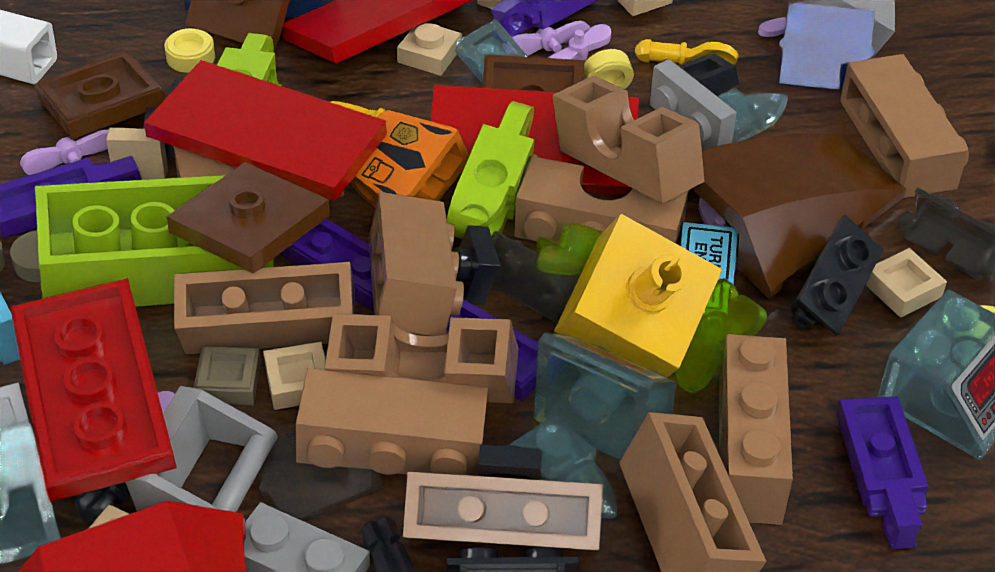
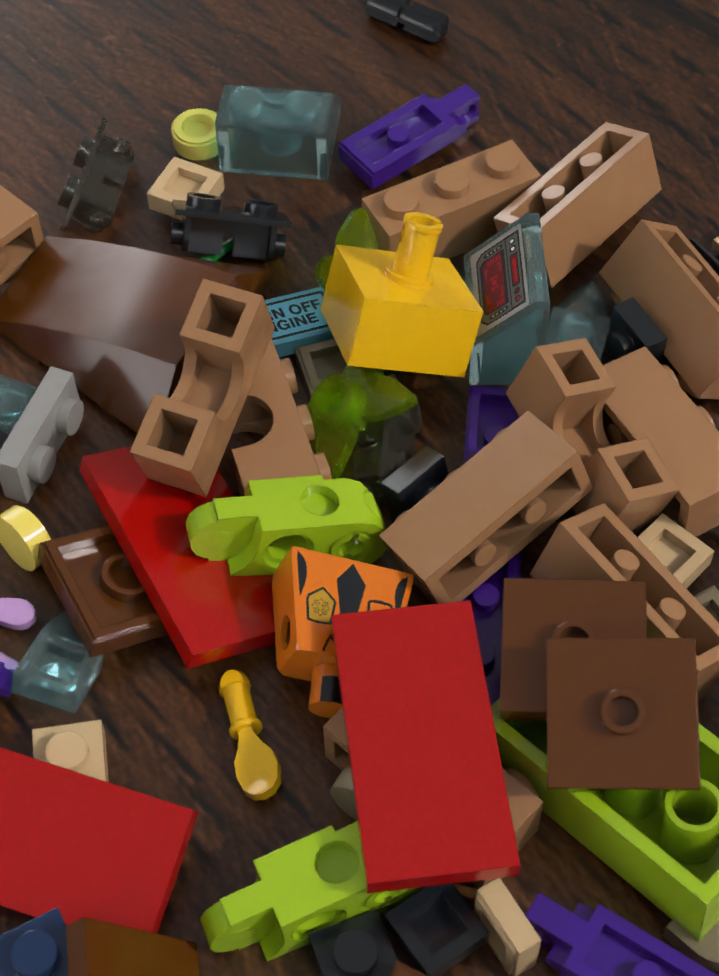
camera: 120 degrees left, 10 degrees up
(176, 195) = (622, 714): none -> reddish brown plate

